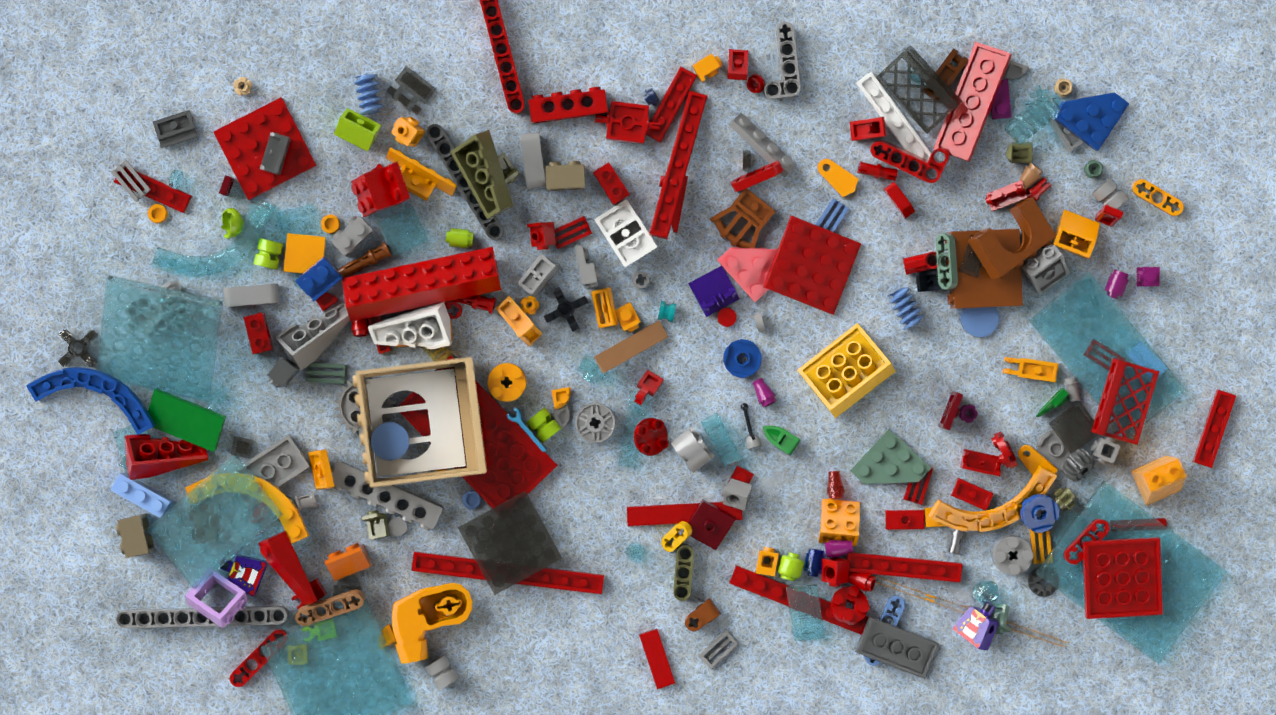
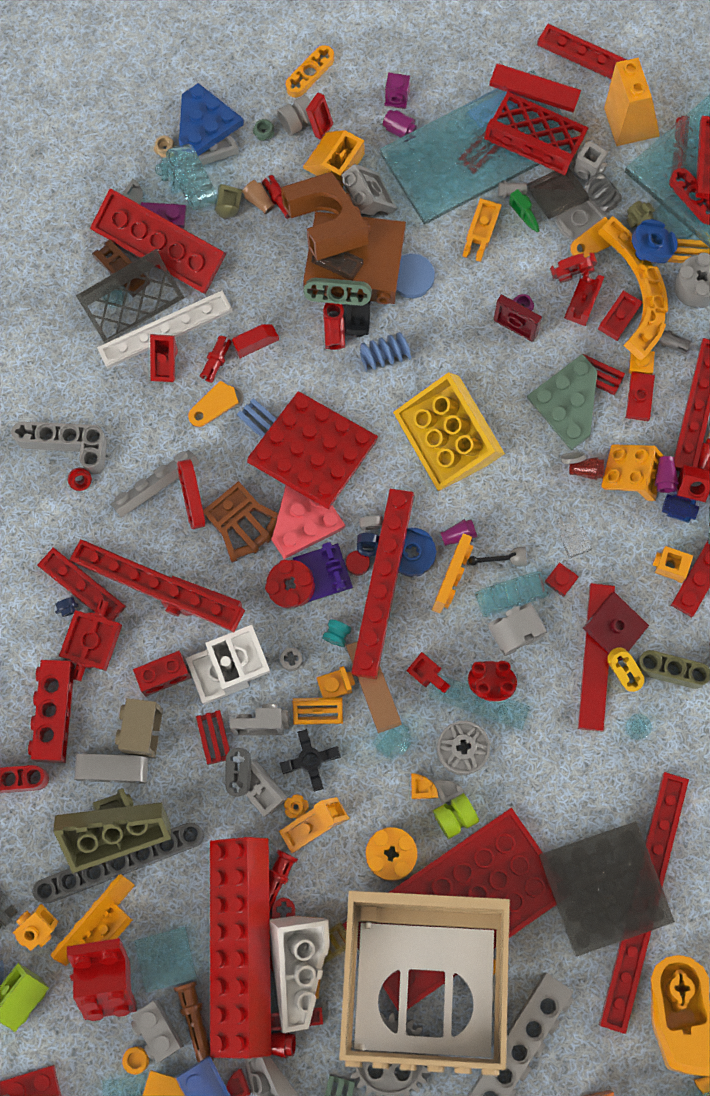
camera: 75 degrees left, 15 degrees down
(376, 525) = (556, 1072): bracket -> none
(389, 441) = (444, 1030): medium blue tile -> none
(397, 526) = (561, 1043): light grey tile -> none
(459, 238) = (191, 883): lime brick -> none
(471, 499) = (539, 932): medium blue tile -> none
(518, 419) = (441, 846): dark azure flag -> none
(542, 235) = (207, 773): red brick -> none
(544, 253) = (232, 771): none -> dark grey beam
(697, 257) = (285, 571): none -> red plate
(707, 67) = (45, 532): light orange brick -> none
(711, 340) = (382, 584): none -> red plate
(727, 393) = (453, 574): none -> light orange plate
(737, 64) = (52, 496): red slope -> none
(737, 494) = (582, 585): light grey brick -> none
(745, 323) = (367, 540): none -> dark blue tile
(746, 160) = (169, 505): clear smoke tile -> none
(781, 439) = (520, 522): green plate -> none
(790, 566) = (682, 535): lime head -> none
(842, 472) = (573, 457): none -> light grey piece
(907, 157) = (206, 318): red beam -> none
(1006, 195) = (274, 222): hinge -> none
(1167, 394) = (535, 88): none -> red tile

